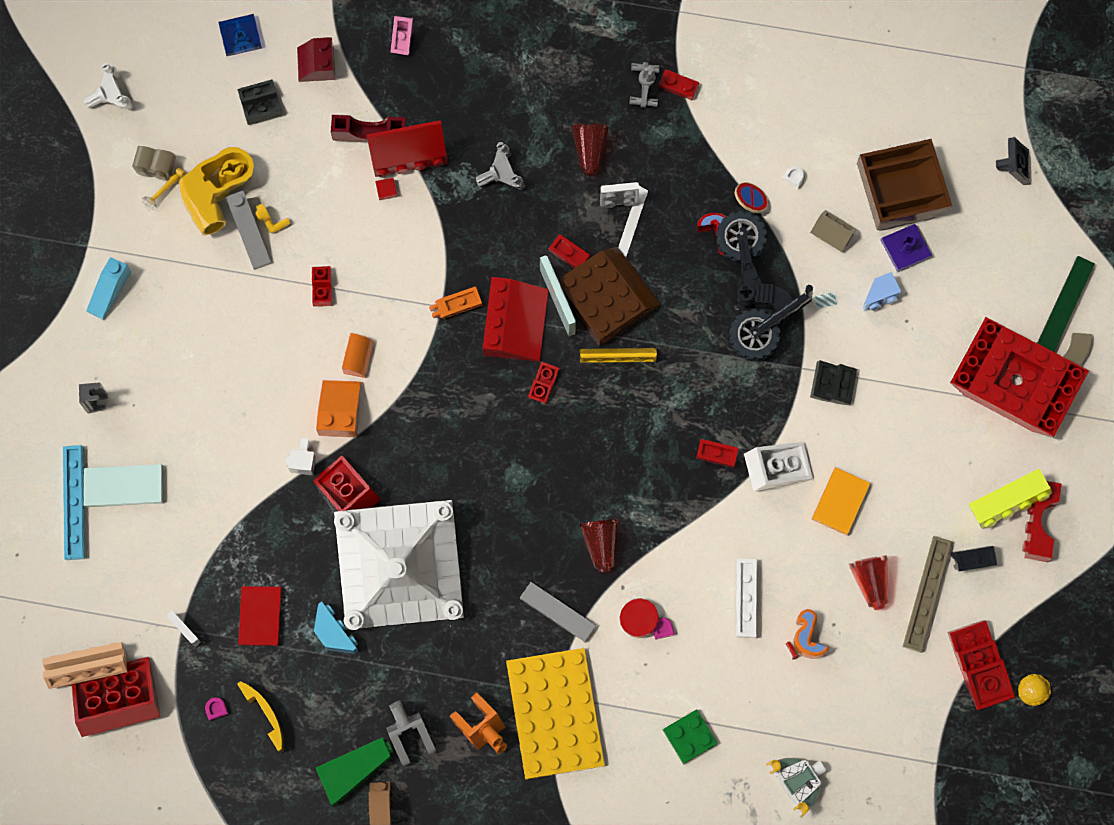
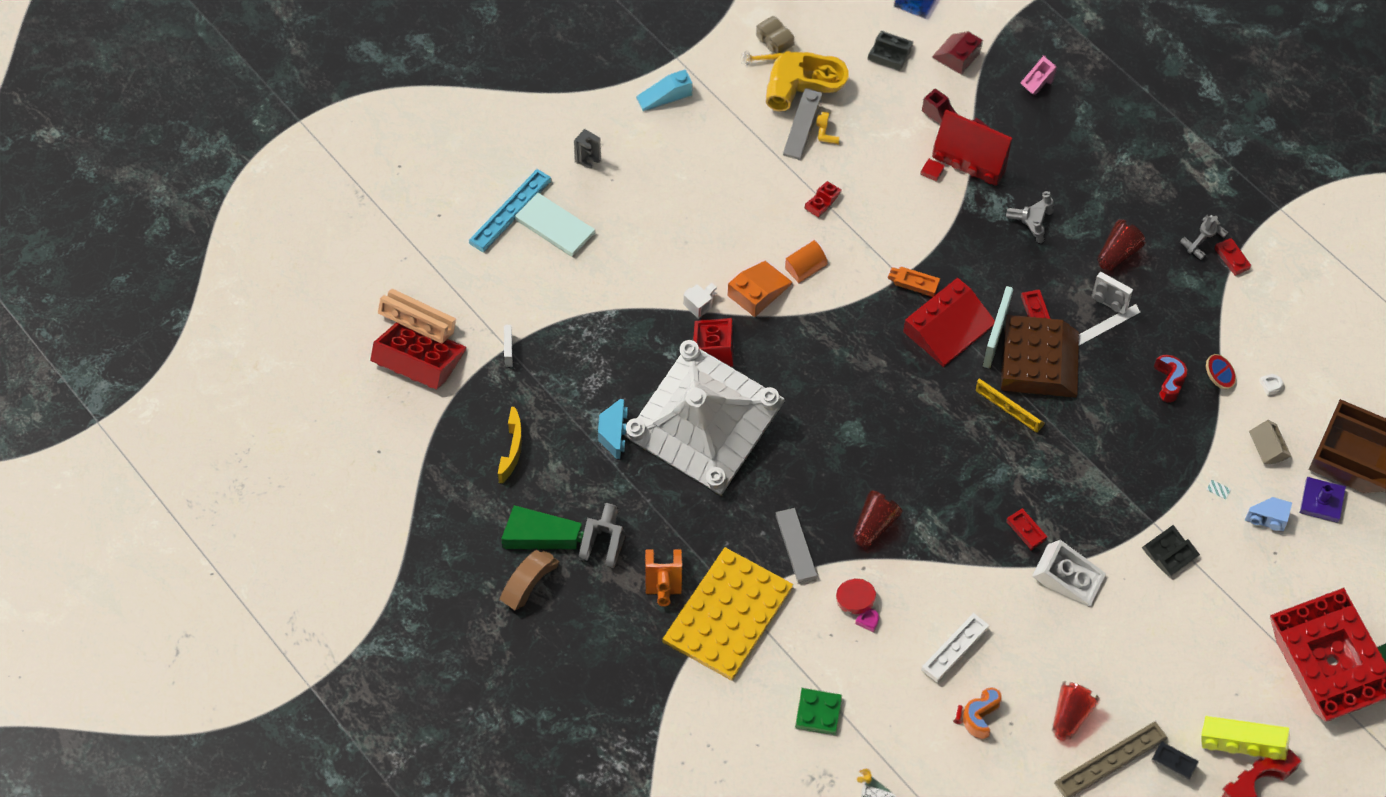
camera: 40 degrees right, 15 degrees down
(215, 709) = (480, 416): dark pink tile -> none
(259, 616) = (570, 380): red tile -> none
(543, 382) = (934, 382): red slope -> none
(759, 294) = (1143, 460): piece -> none
(840, 501) = (1098, 638): light orange tile -> none

